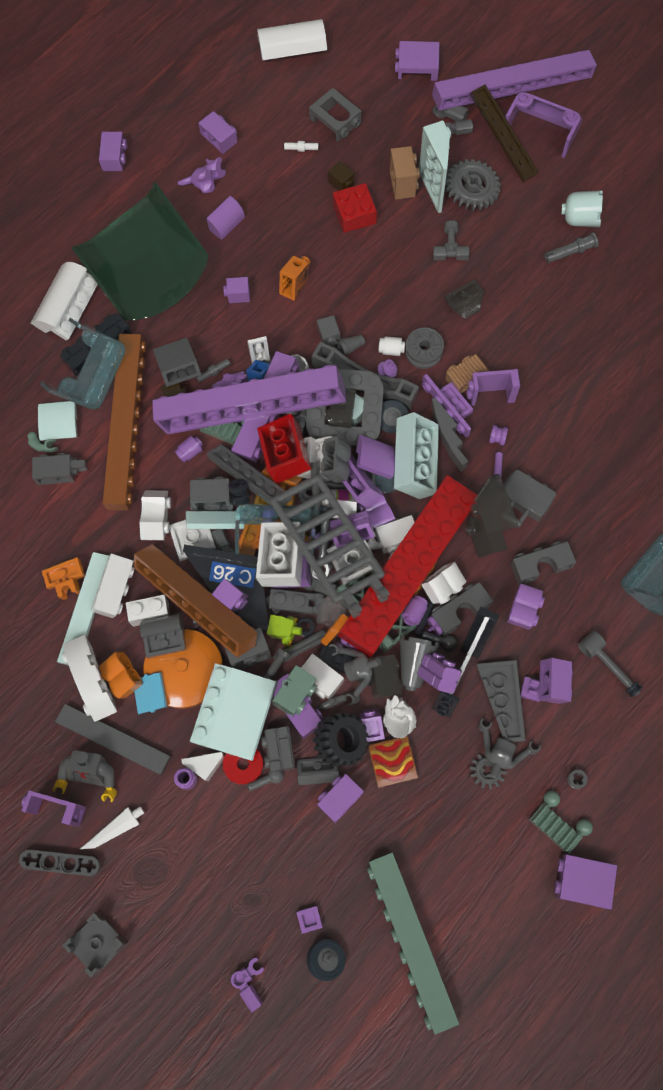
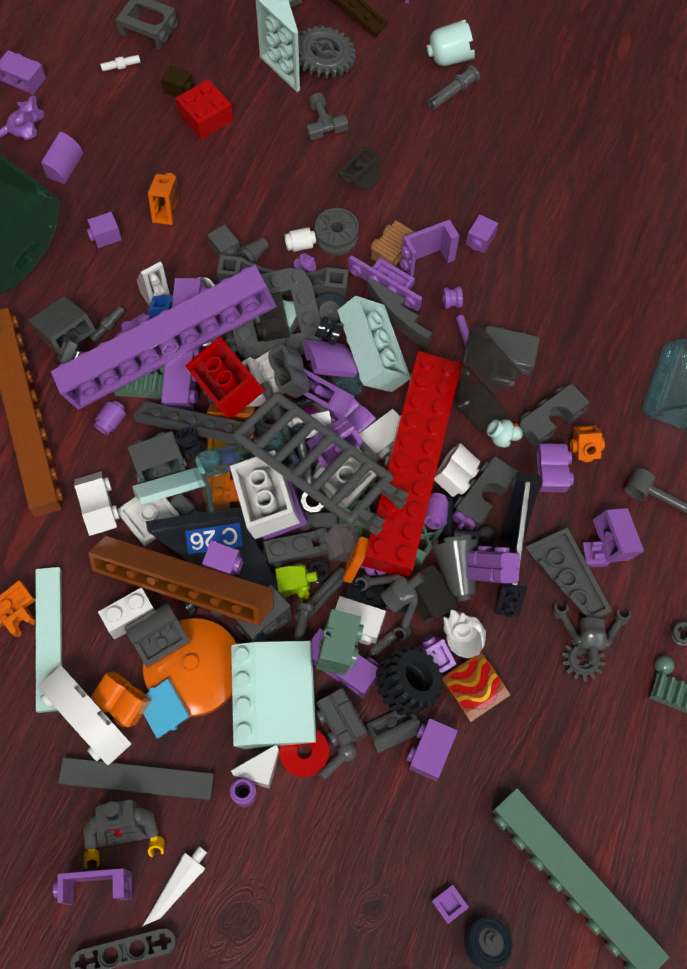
camera: 25 degrees left, 5 degrees down
(113, 586) = (74, 599): white brick -> none
(173, 386) = (68, 351): none -> dark grey tile
(378, 433) = (324, 327): none -> black wheel
(403, 172) = (245, 58): medium nougat brick -> none
(495, 563) = (503, 432): none -> light aqua animal
(544, 387) = (481, 234): none -> medium lavender brick
(560, 596) = (587, 443): none -> orange brick

